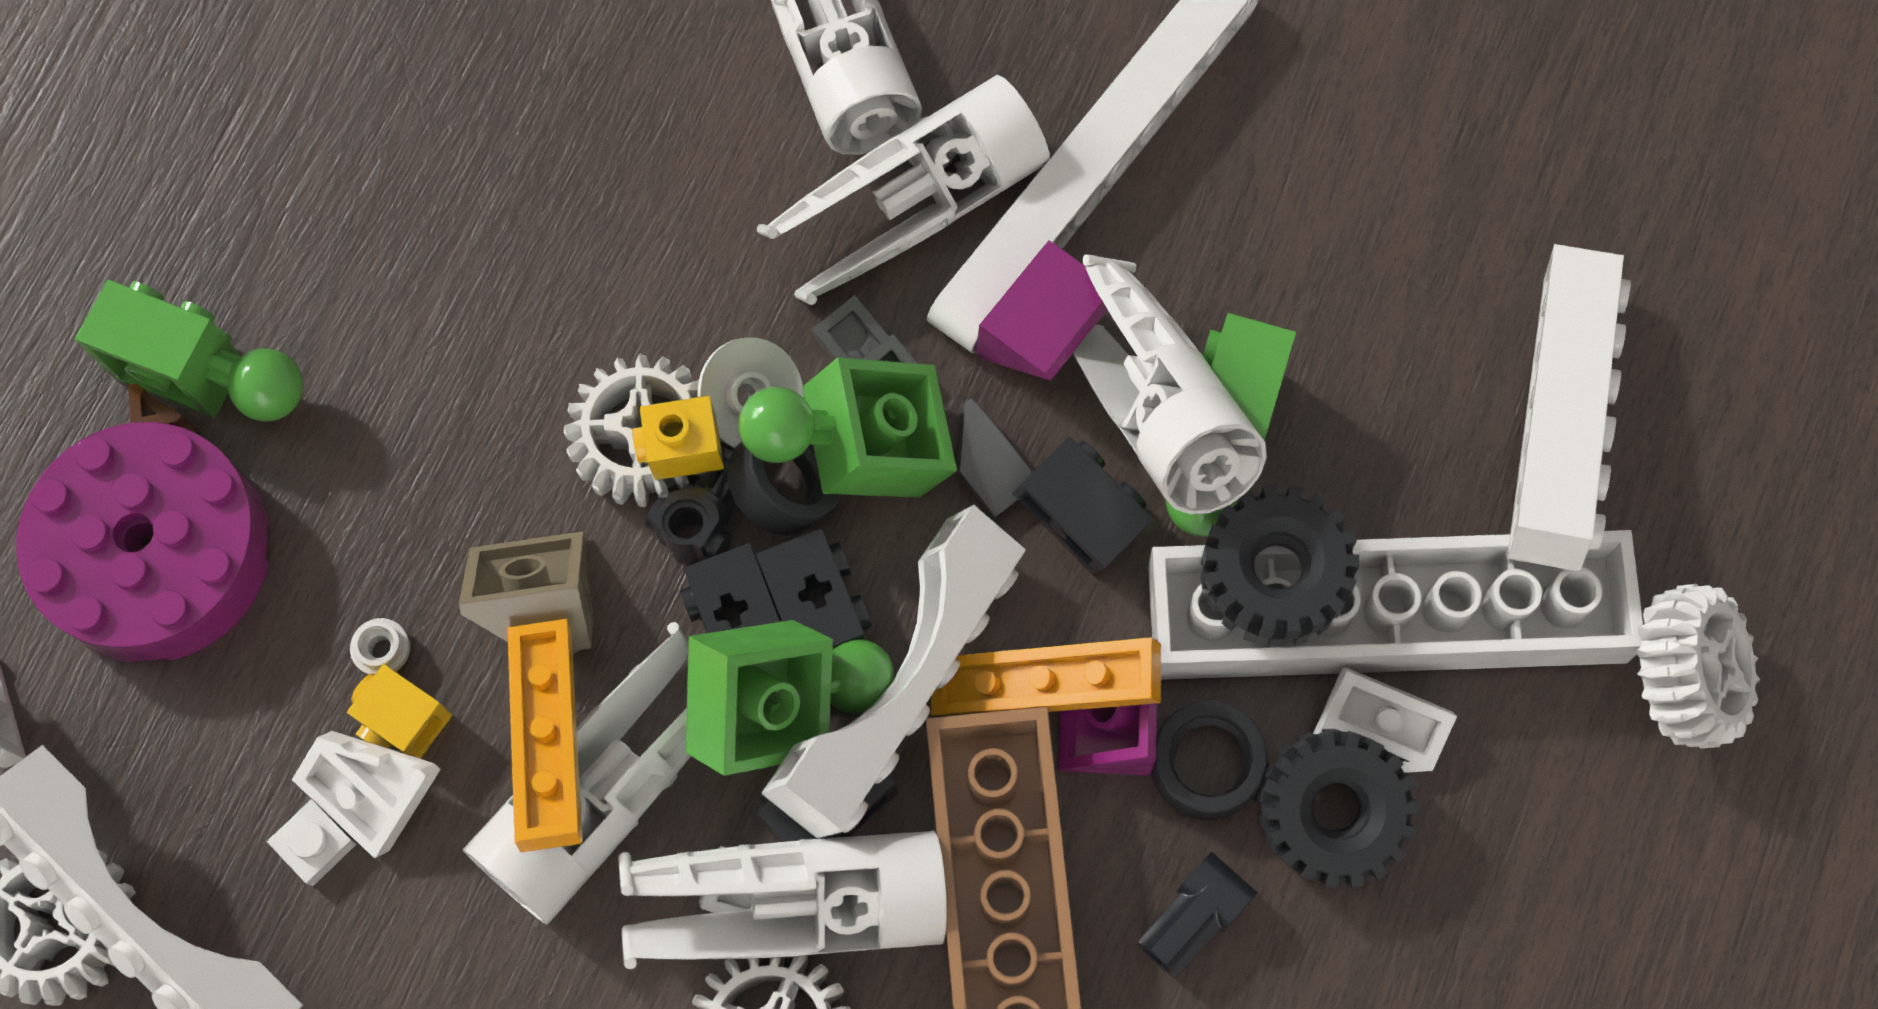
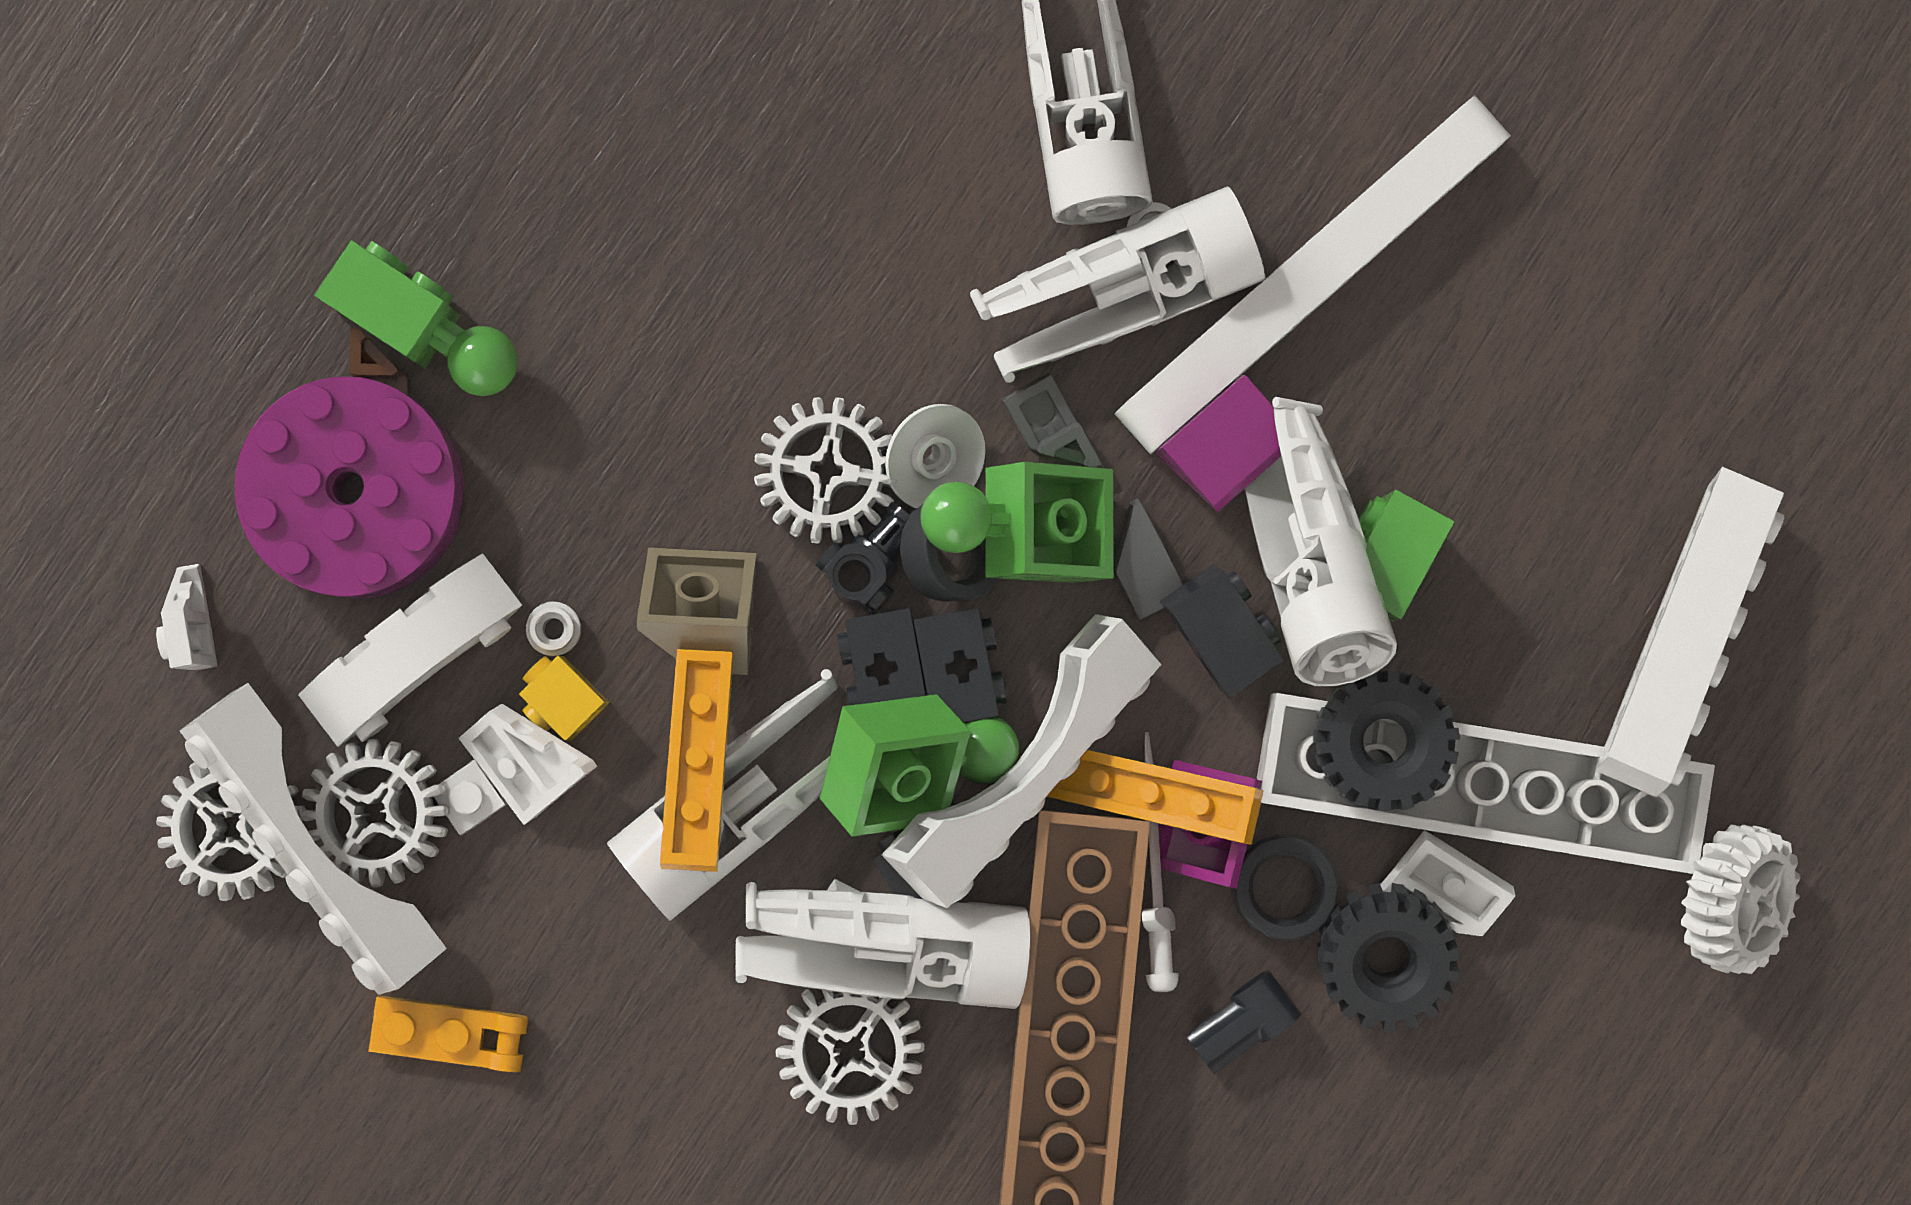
camera: 10 degrees right, 15 degrees up
(216, 854) = (335, 787): none -> white gear
(220, 690) = (409, 649): none -> white brick
(679, 438) = (862, 501): yellow brick -> none
(1080, 818) = (1159, 919): none -> white sword

